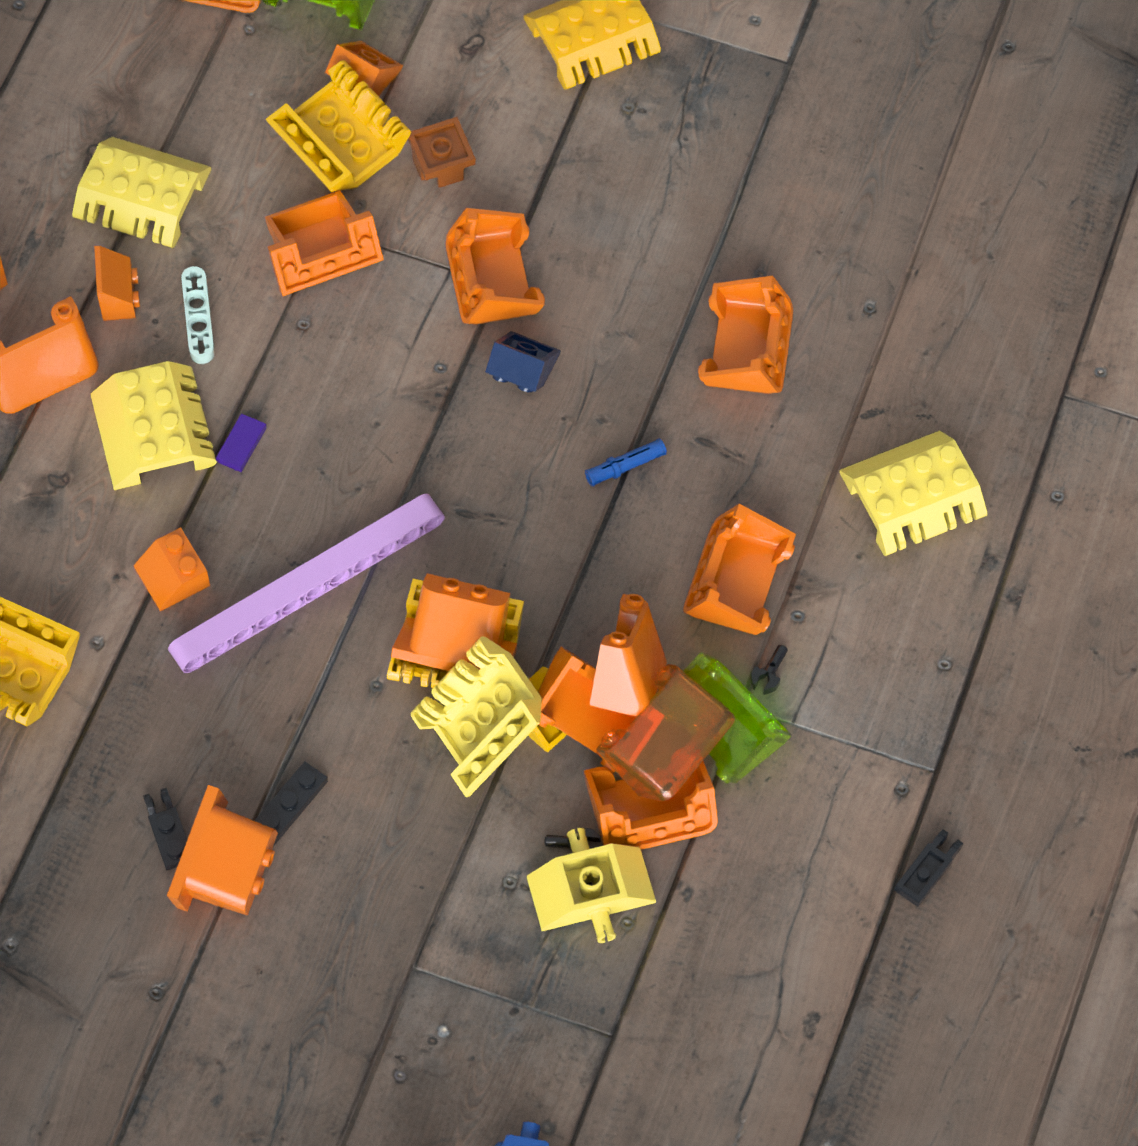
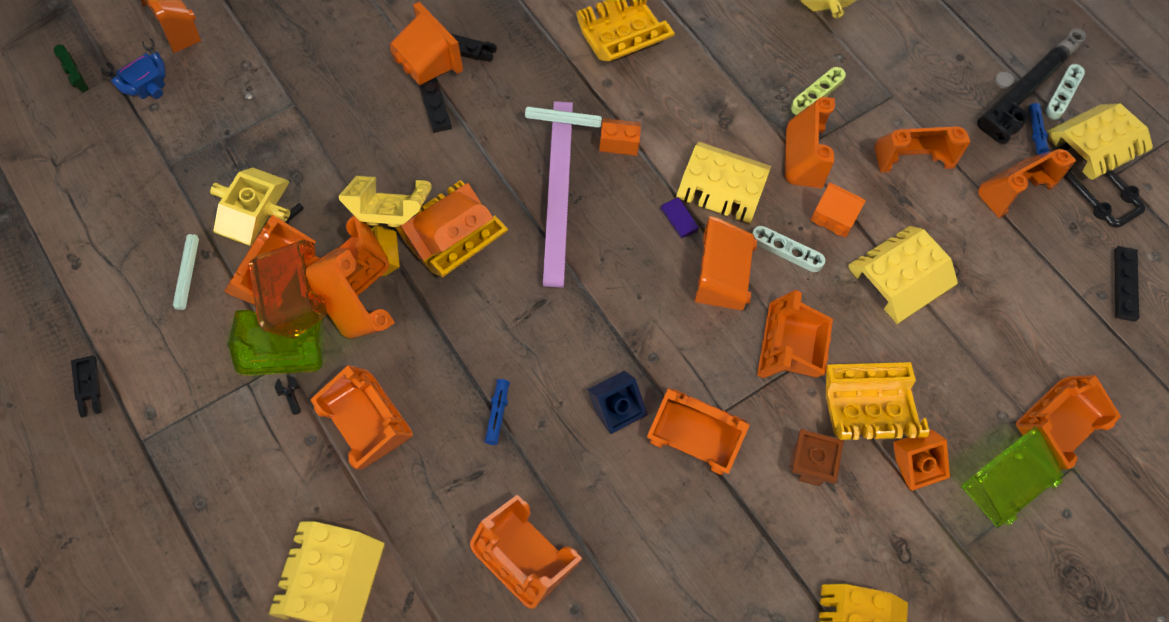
camera: 120 degrees right, 0 degrees up
(207, 630) = (563, 116): none -> light aqua axle
(273, 353) = (725, 265): none -> orange windscreen
(725, 888) = (185, 272): none -> light aqua axle

